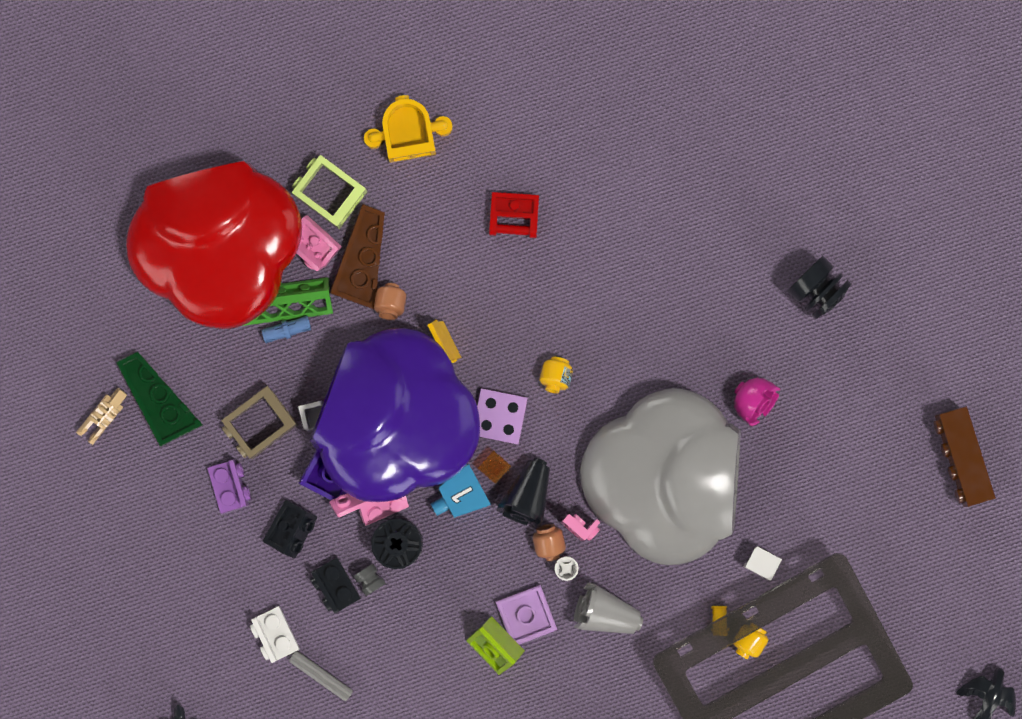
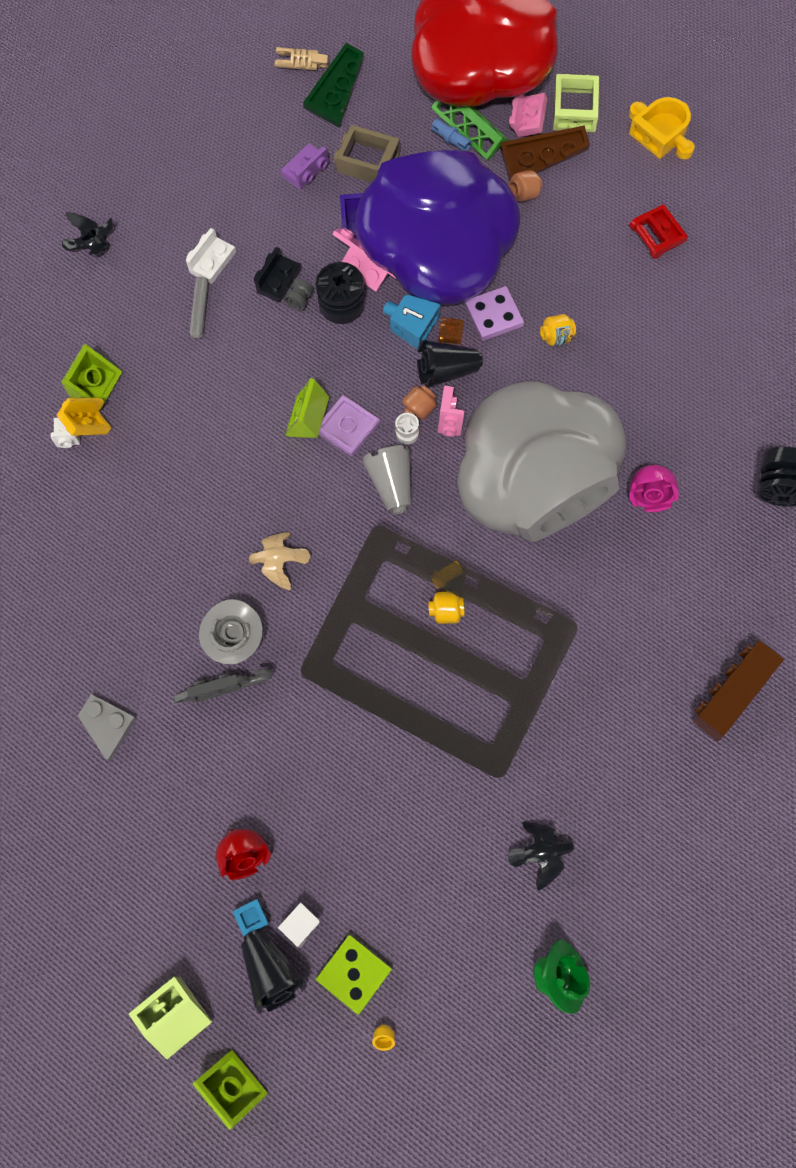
camera: 60 degrees right, 15 degrees down
(290, 529) = (300, 222): black bracket -> none
(444, 339) = (524, 235): yellow piece -> none
(763, 563) = (521, 576): white panel -> none

